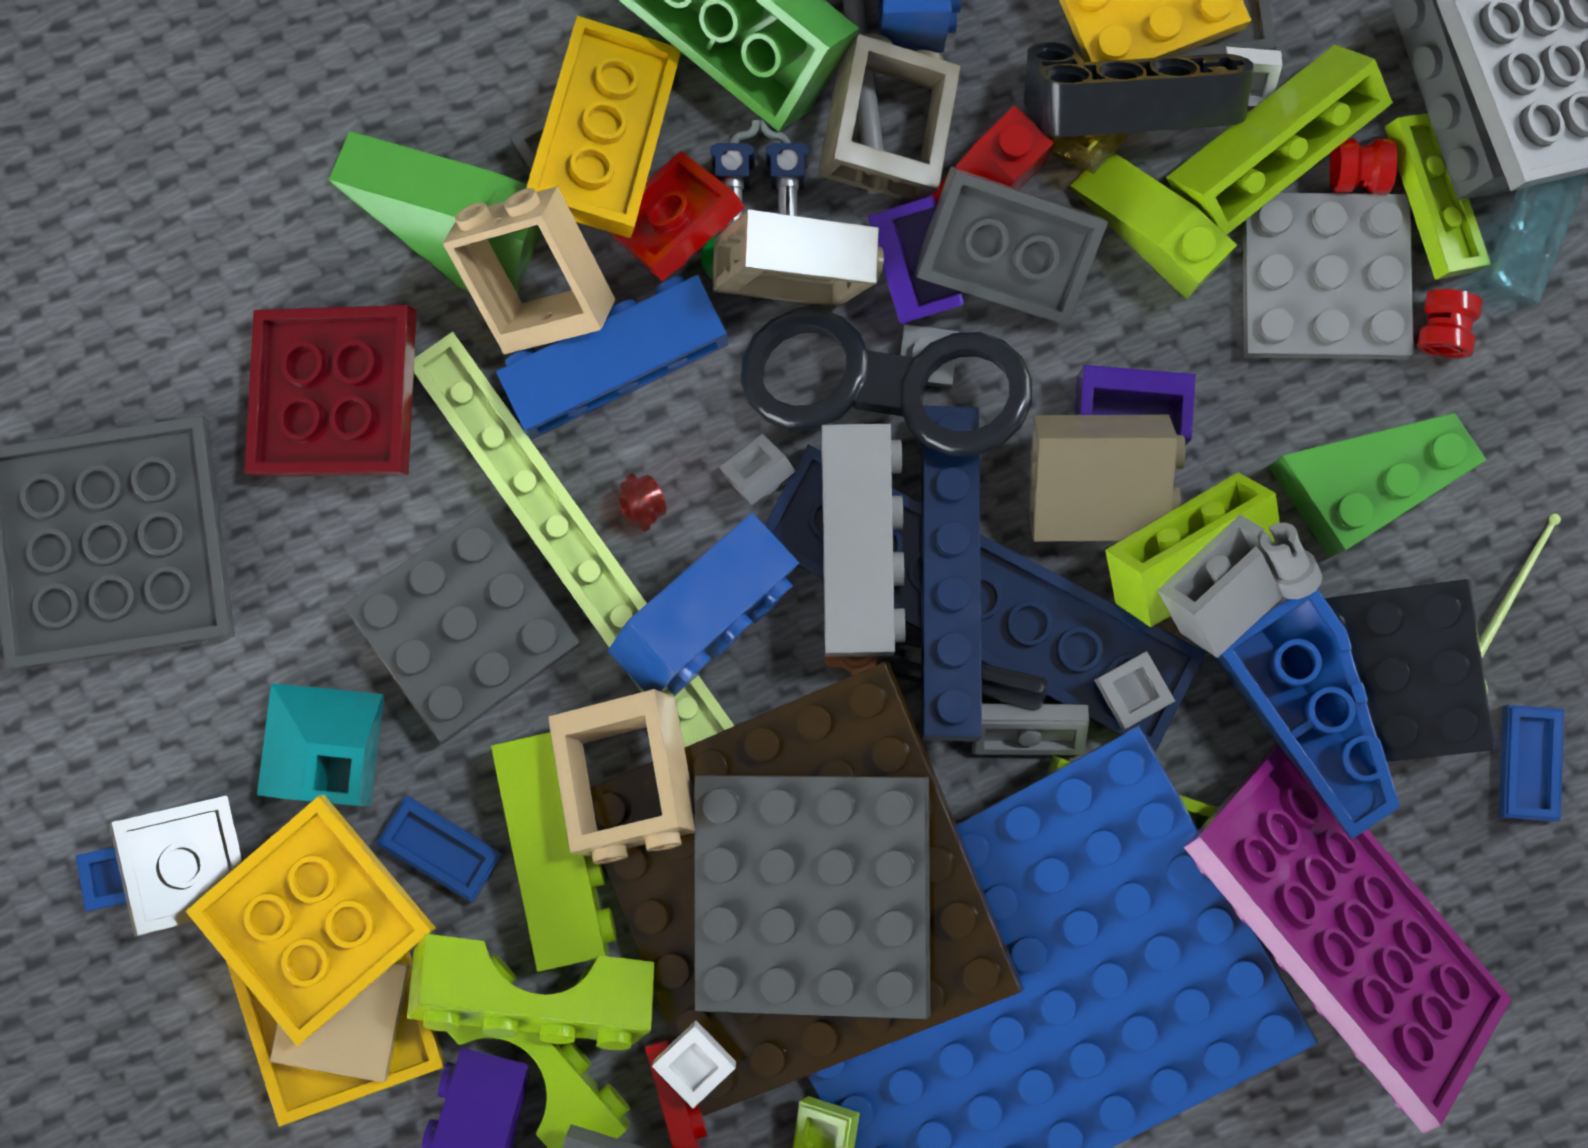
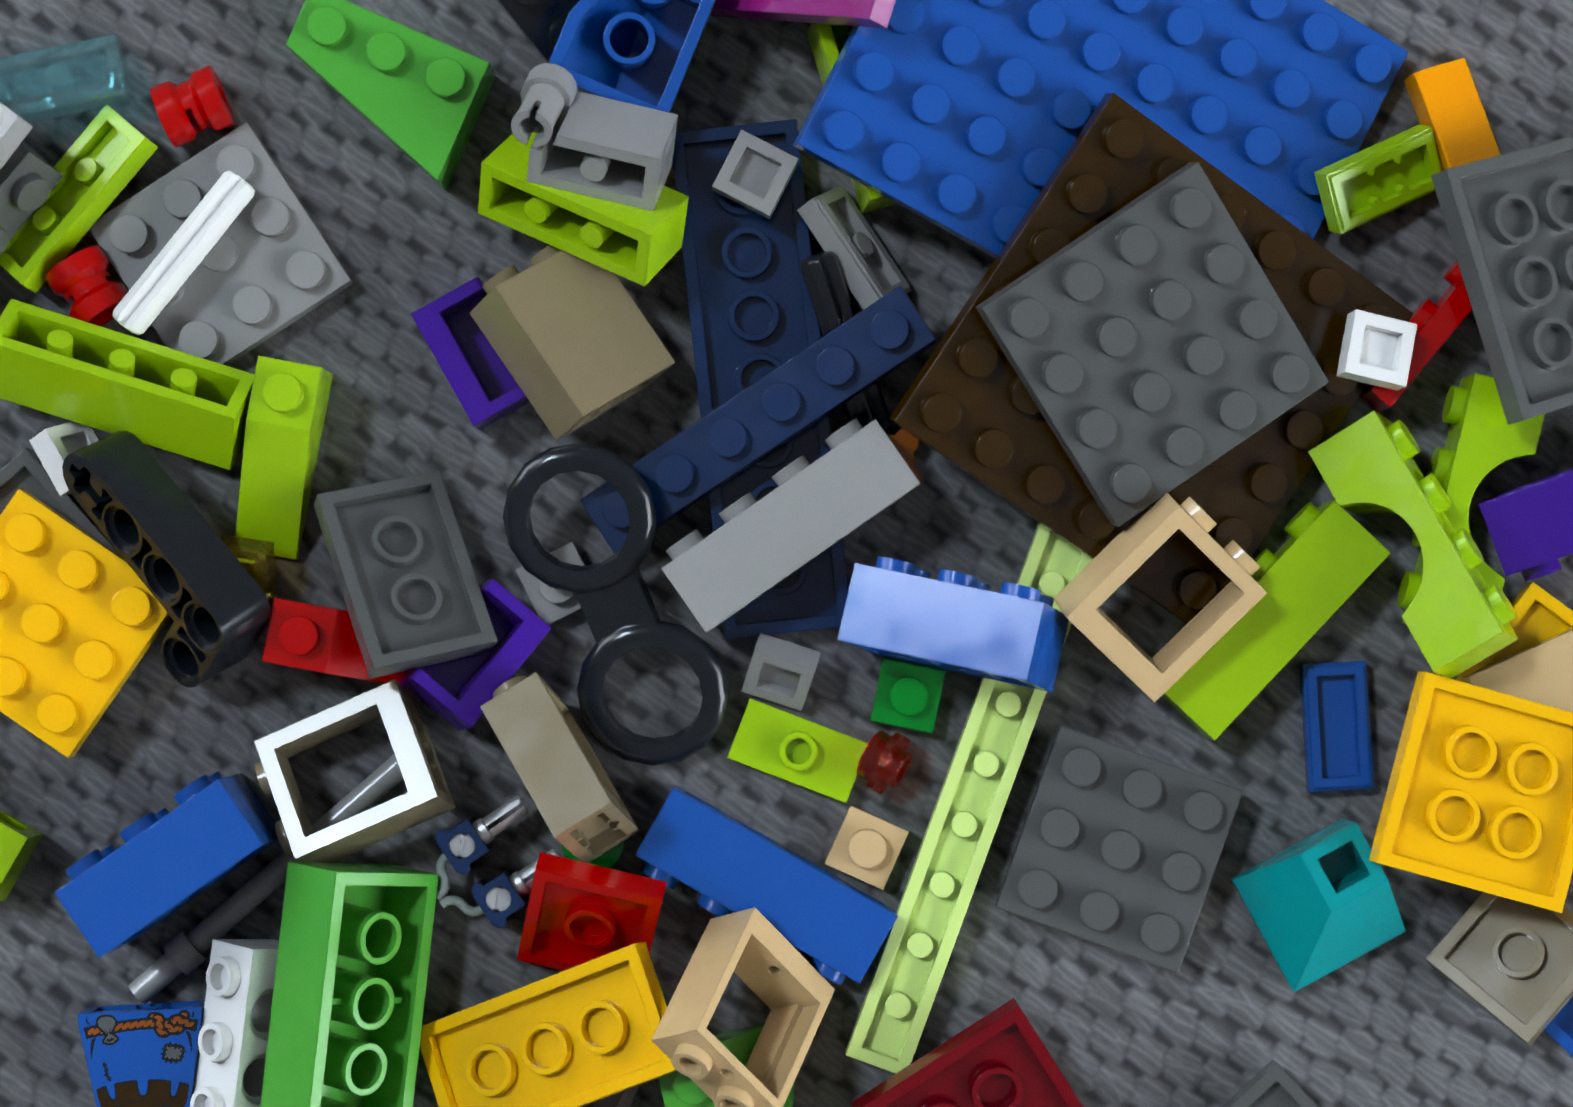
camera: 130 degrees left, 5 degrees up
(589, 448) = (866, 847): none -> tan plate
(674, 547) = (907, 695): none -> green plate
(693, 445) = (797, 750): none -> lime plate
(1346, 244) = (183, 252): none -> white axle

